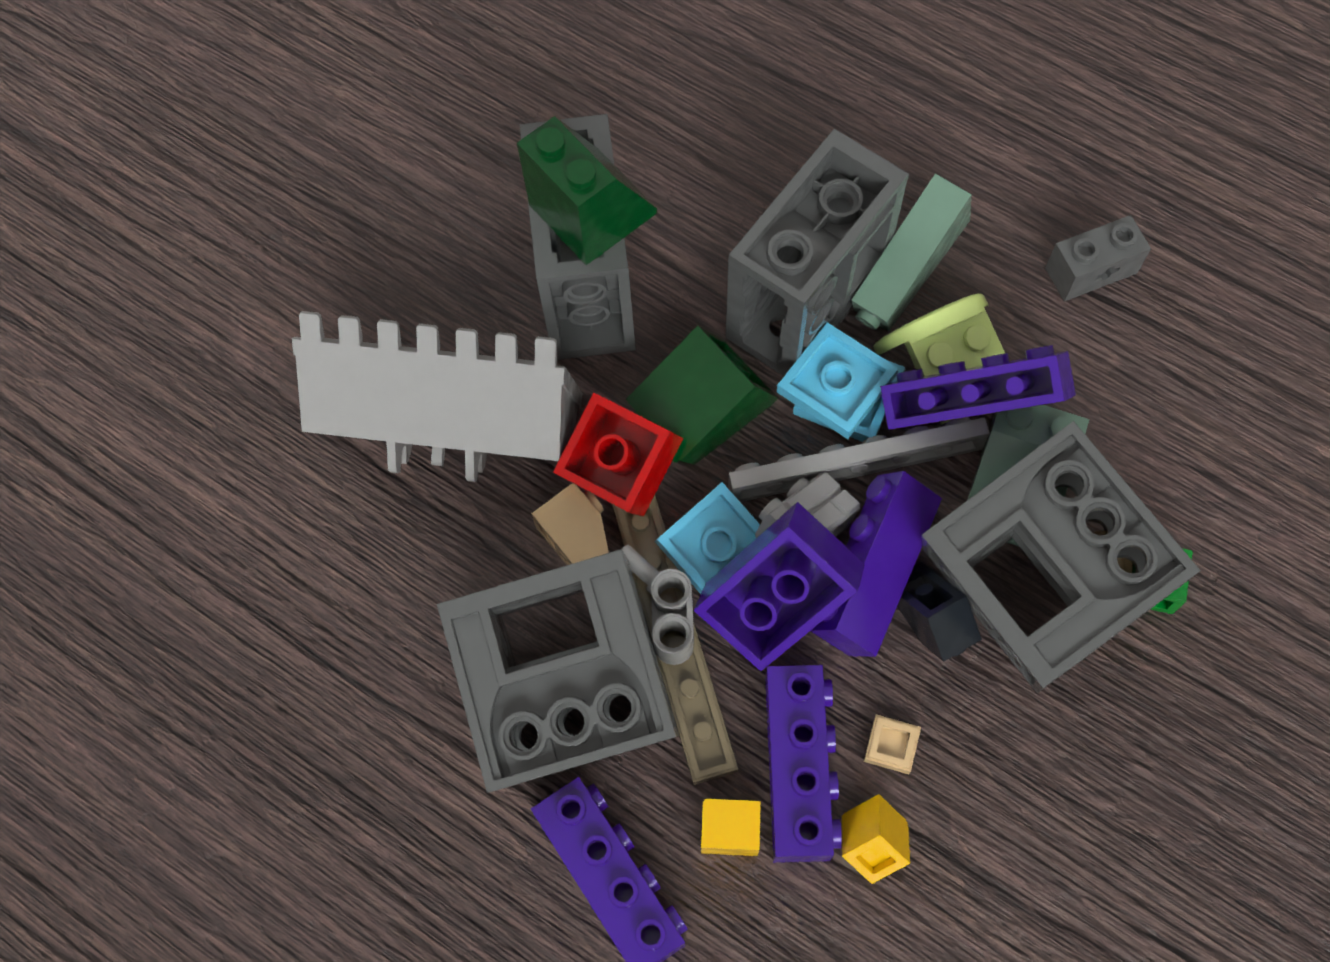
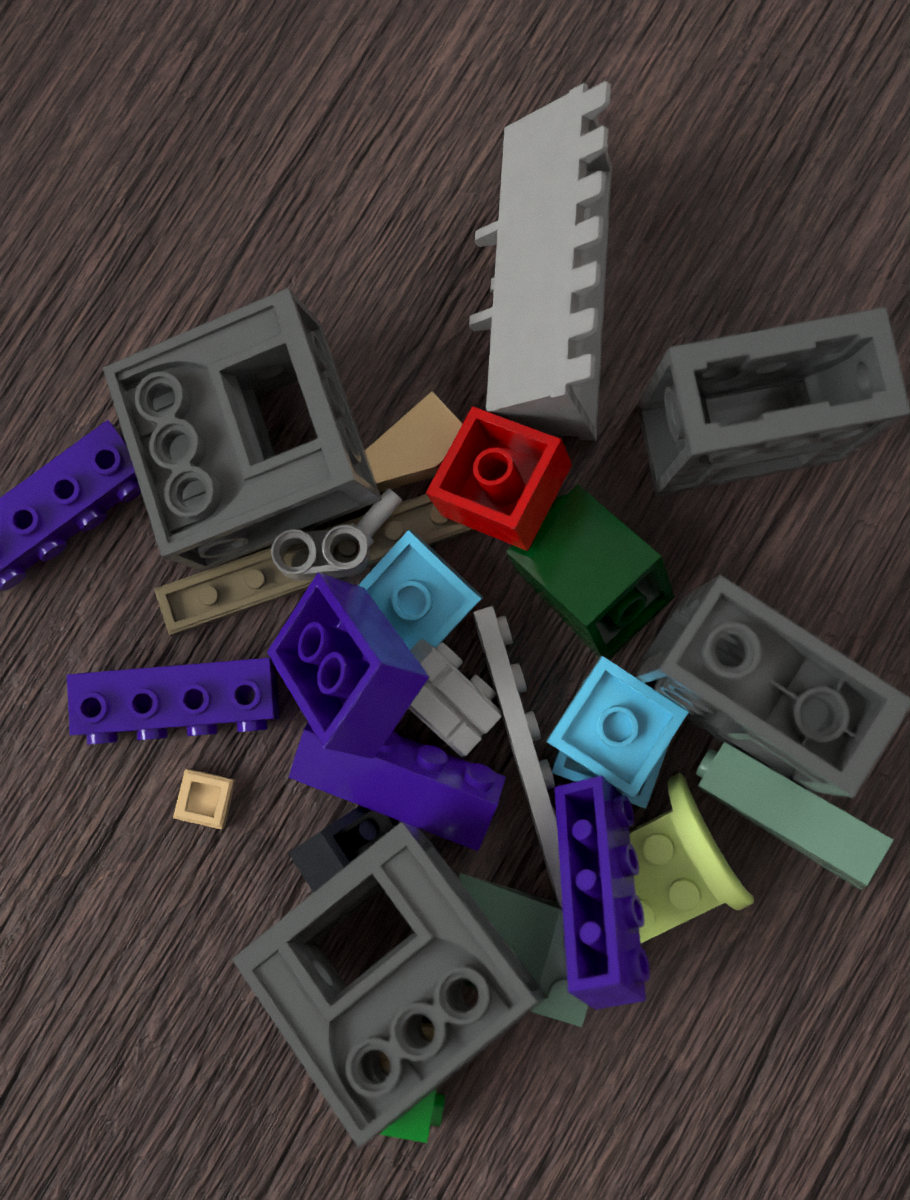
camera: 80 degrees right, 15 degrees up
(579, 190) = (784, 384): dark green slope -> none
(730, 827) = (101, 629): yellow panel -> none
(875, 839) = (99, 781): yellow panel -> none
(1097, 258) = (812, 1048): dark grey brick -> none

